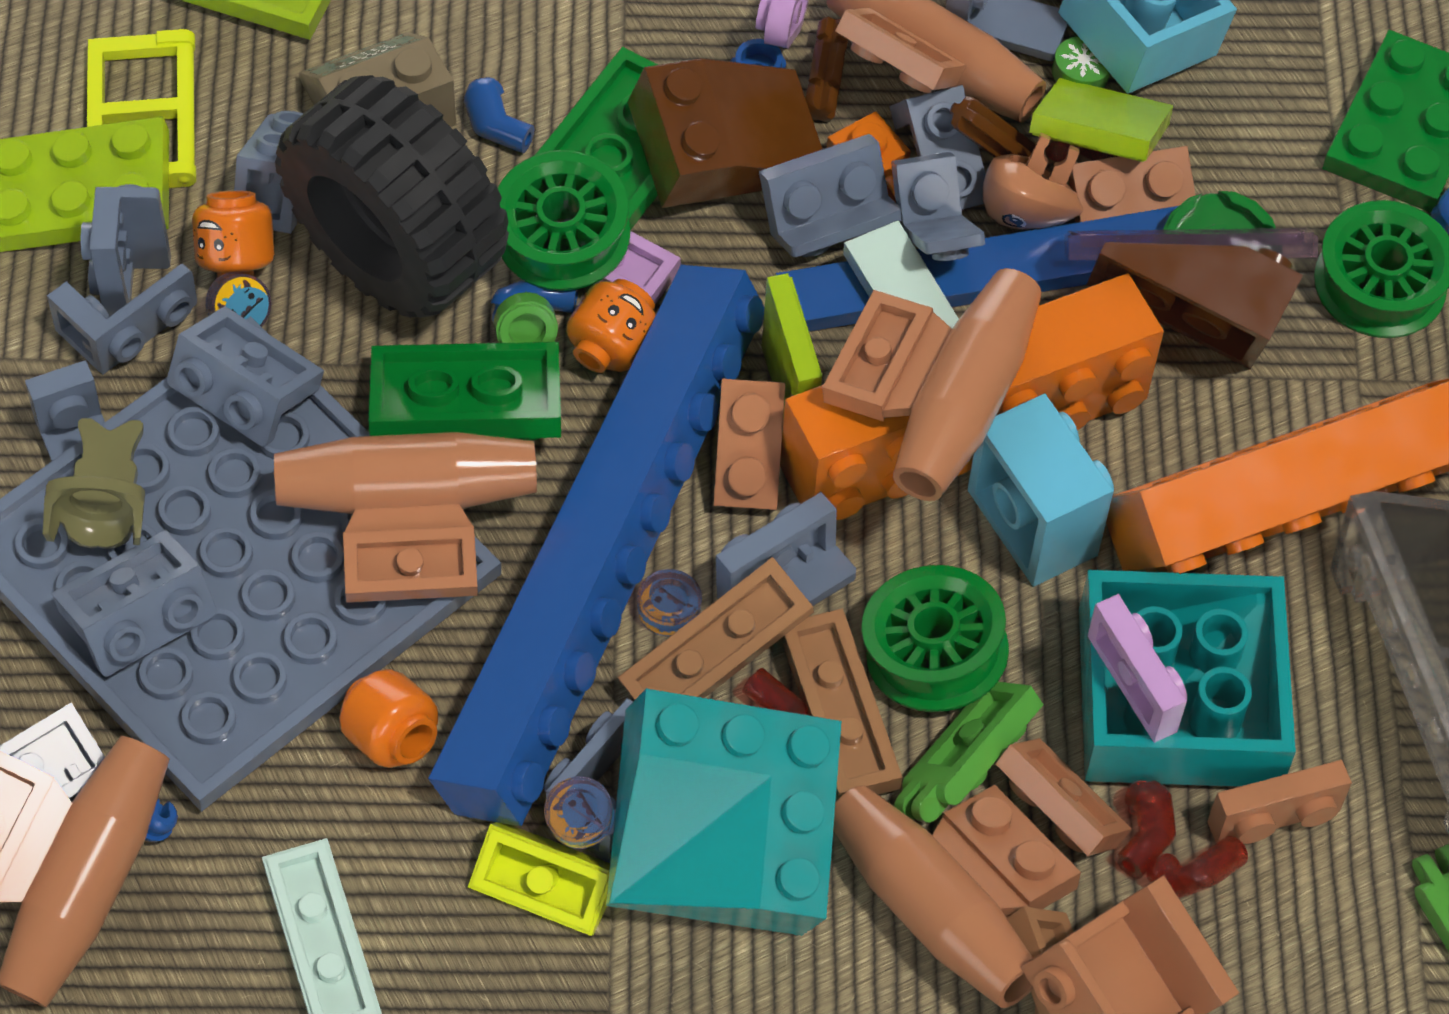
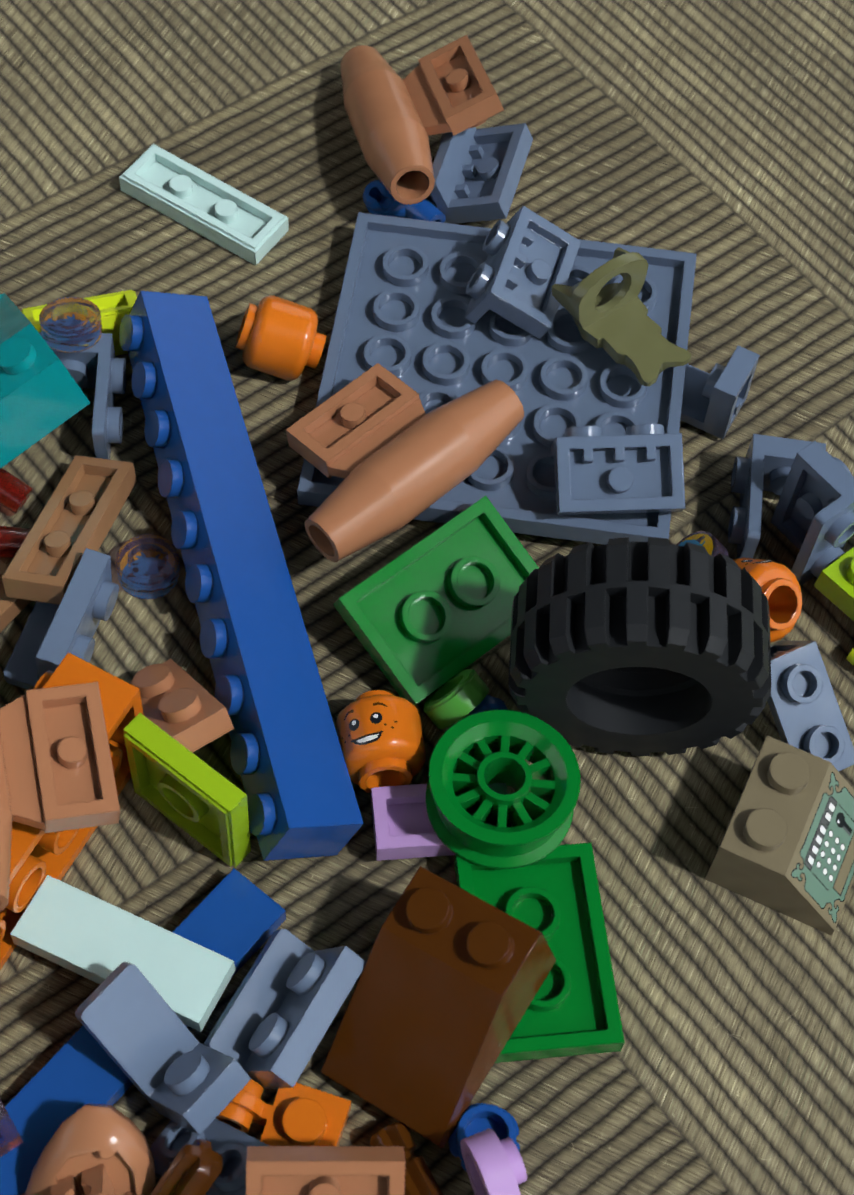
camera: 140 degrees right, 0 degrees up
(489, 117) = (675, 888): blue arm -> none

